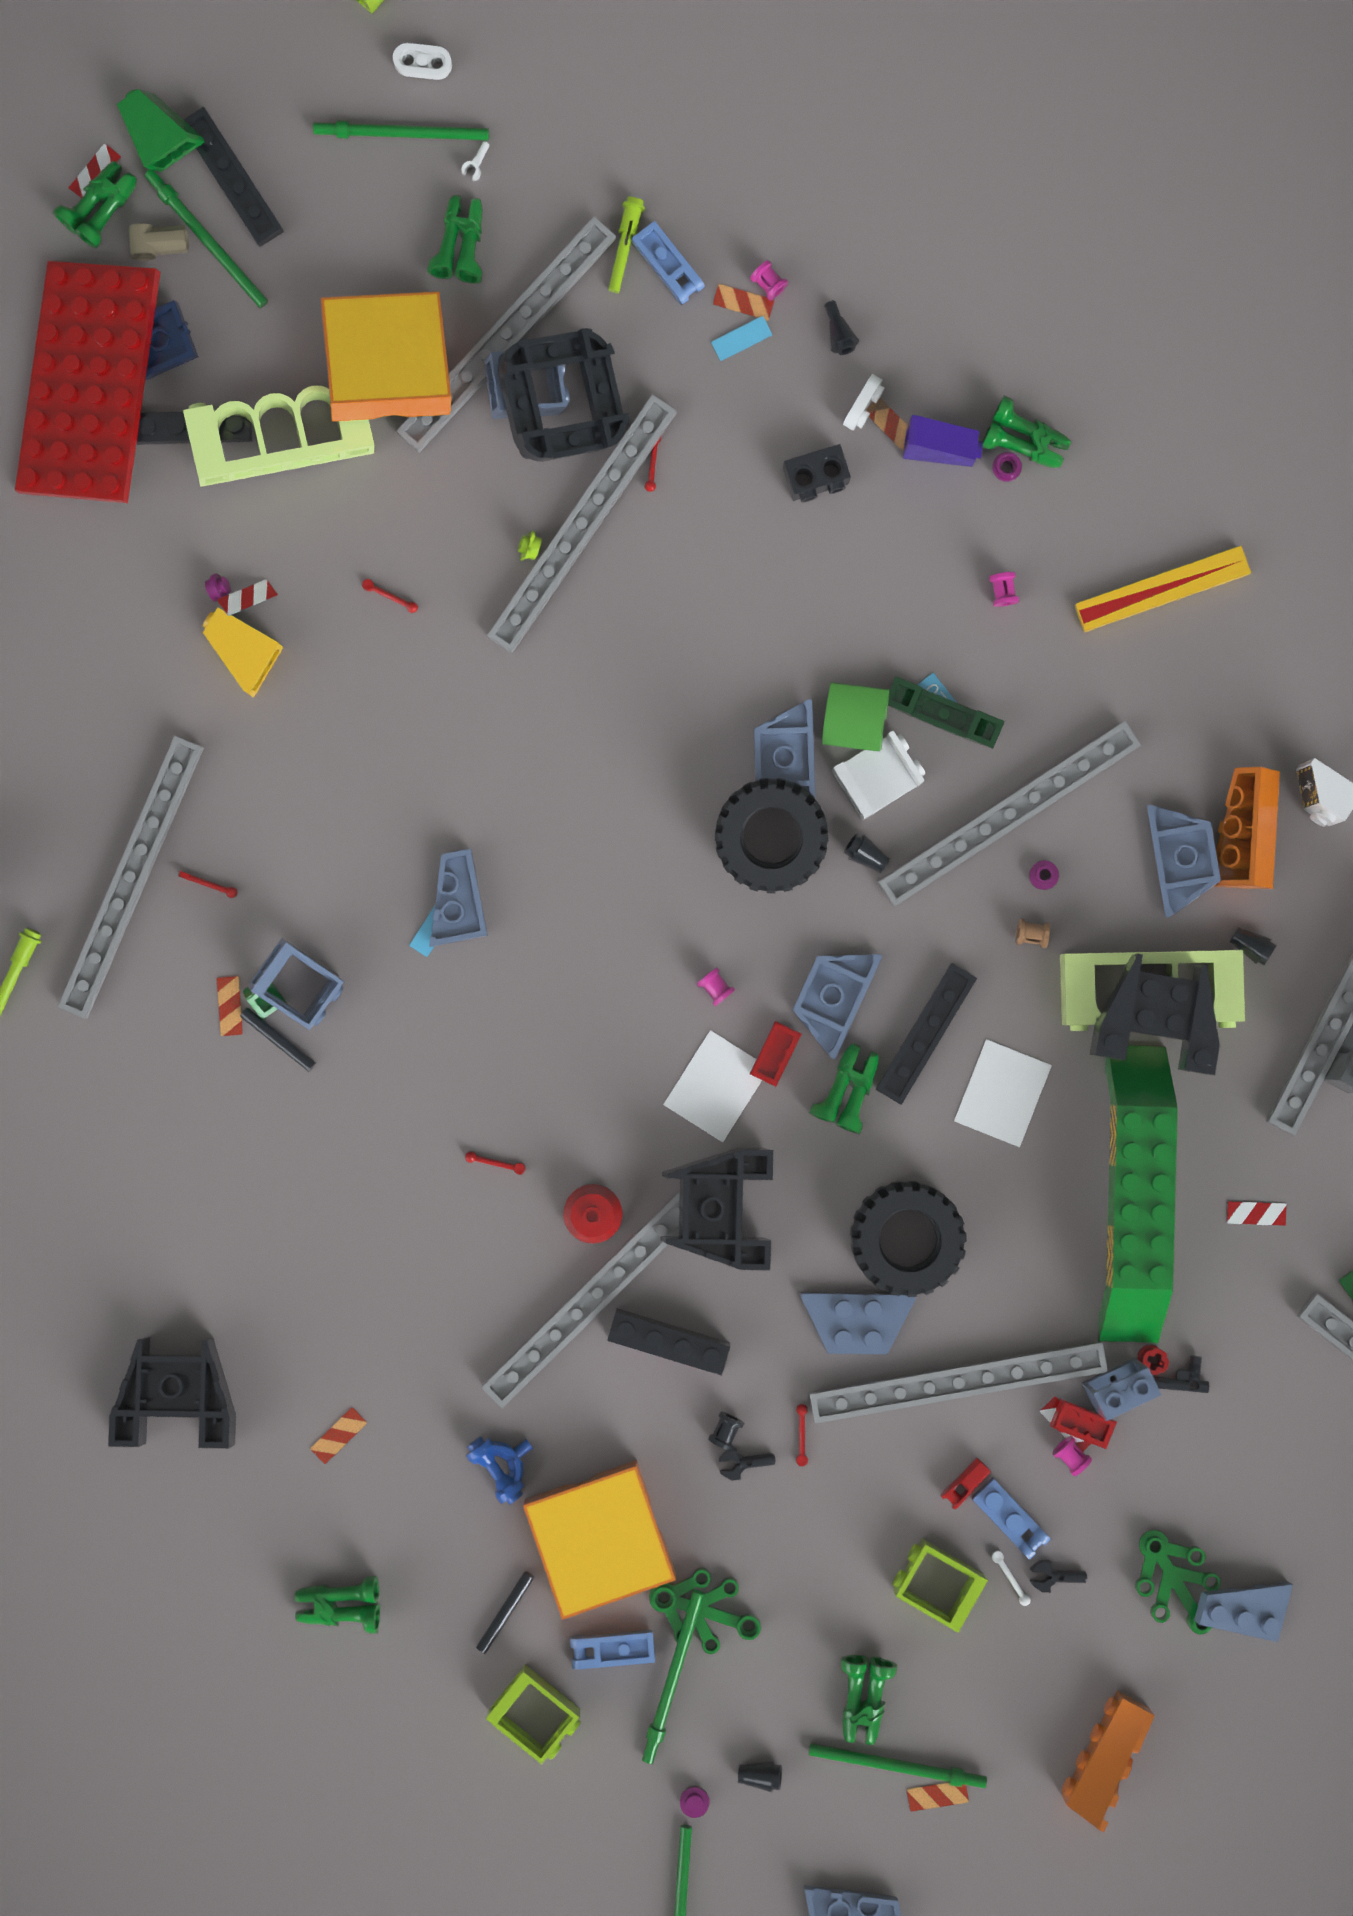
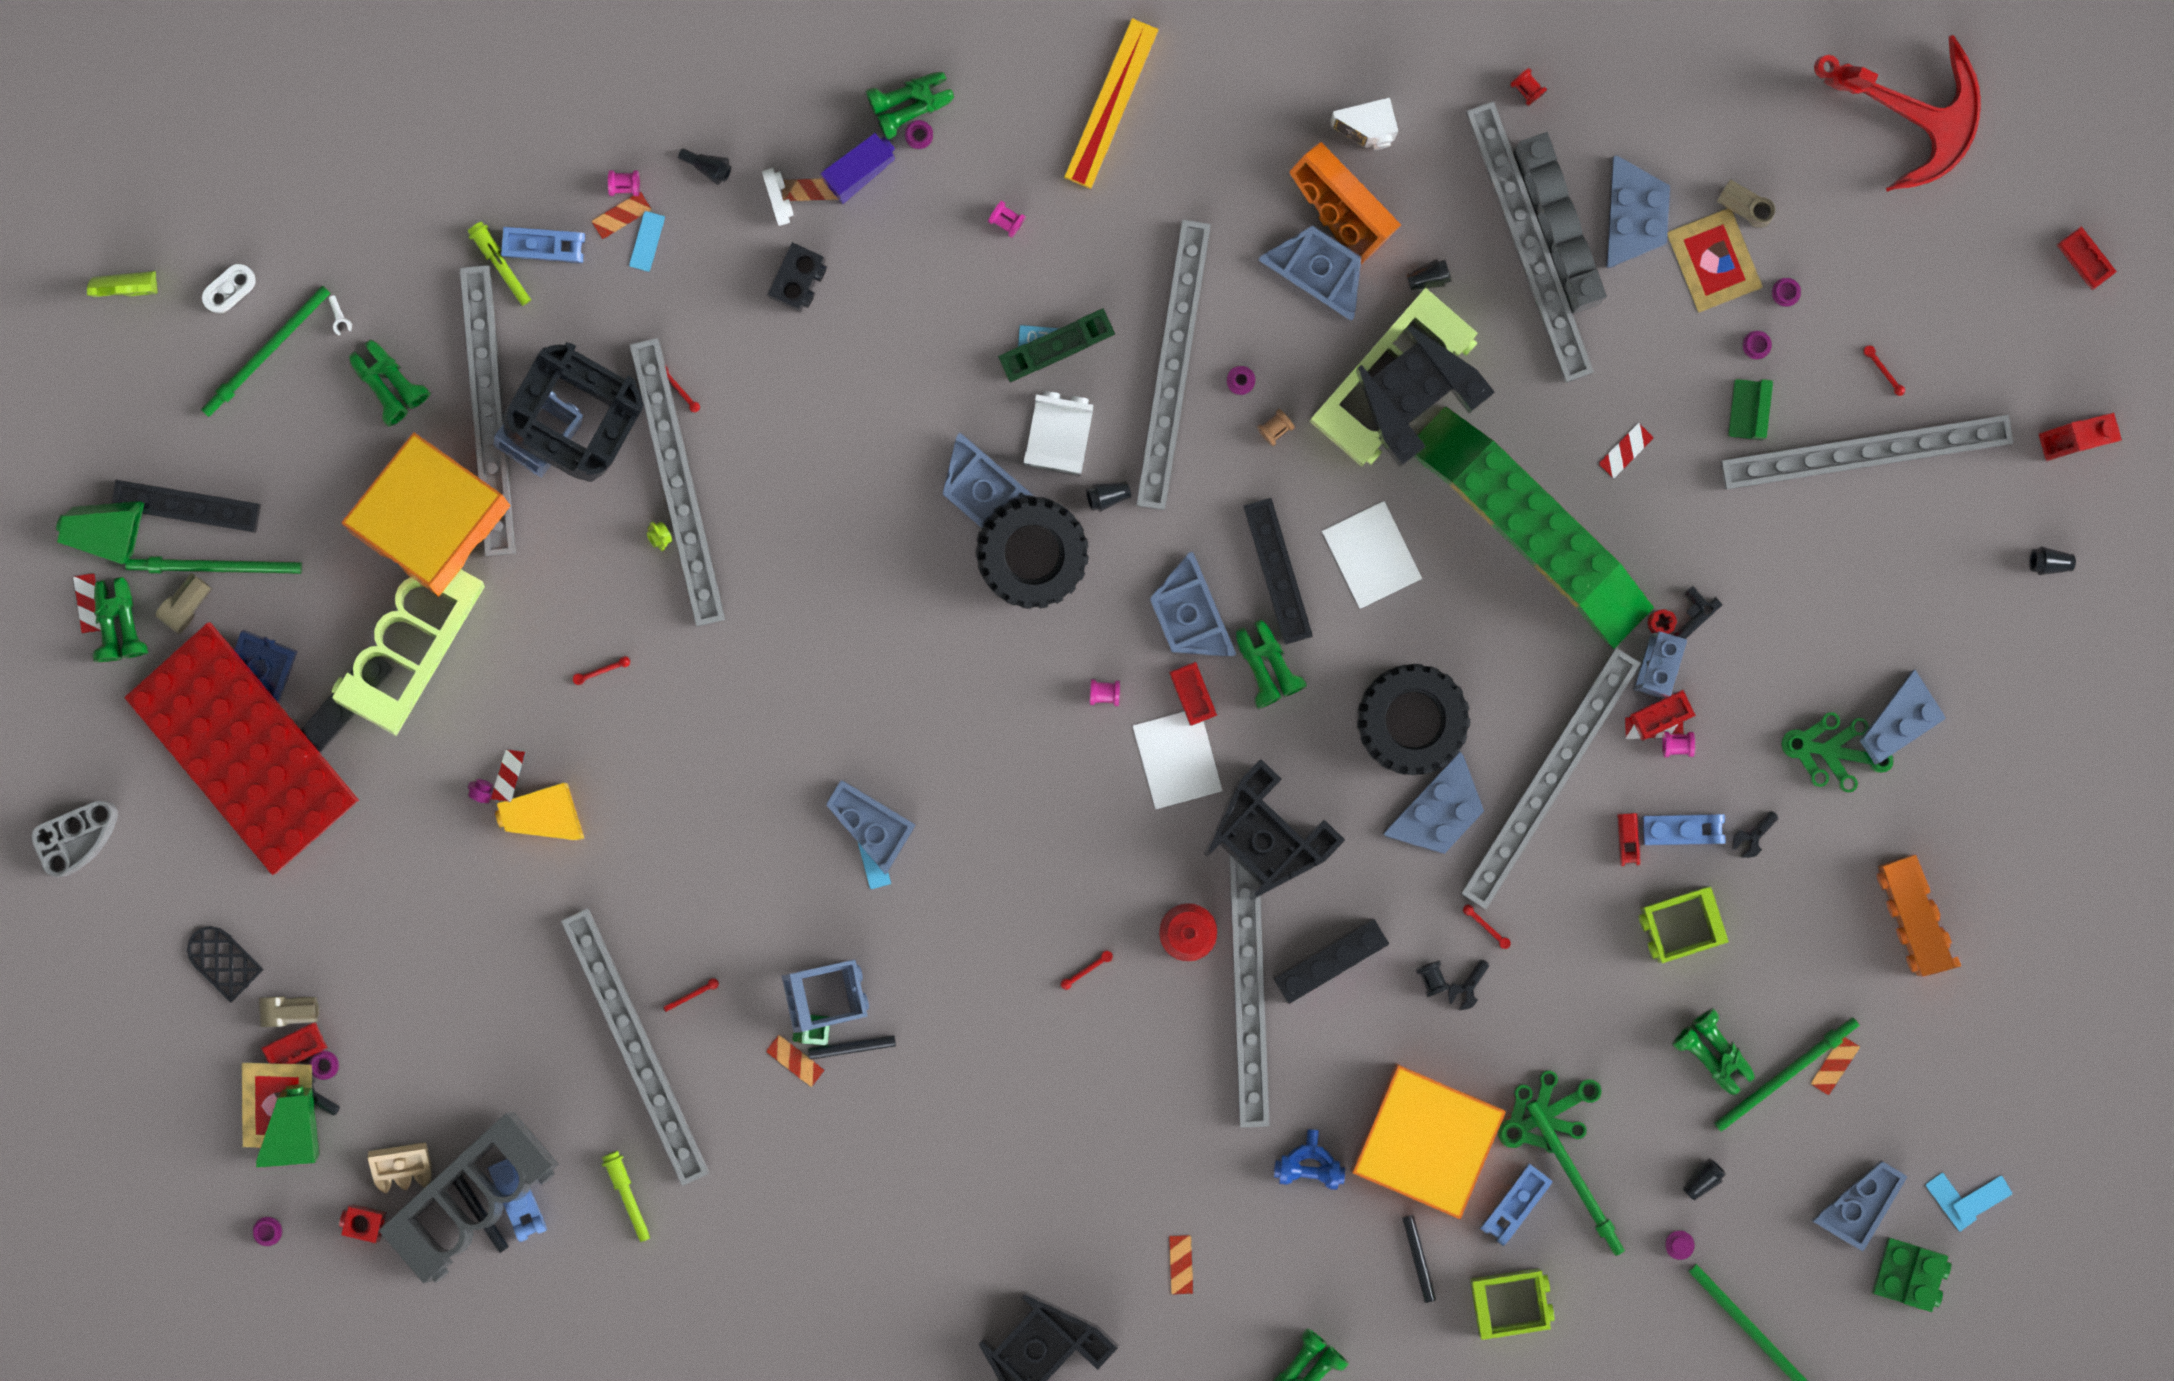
camera: 45 degrees left, 0 degrees up
(855, 716) = (1000, 412): bright green slope -> none
(998, 1557) = (1703, 865): white hinge -> none

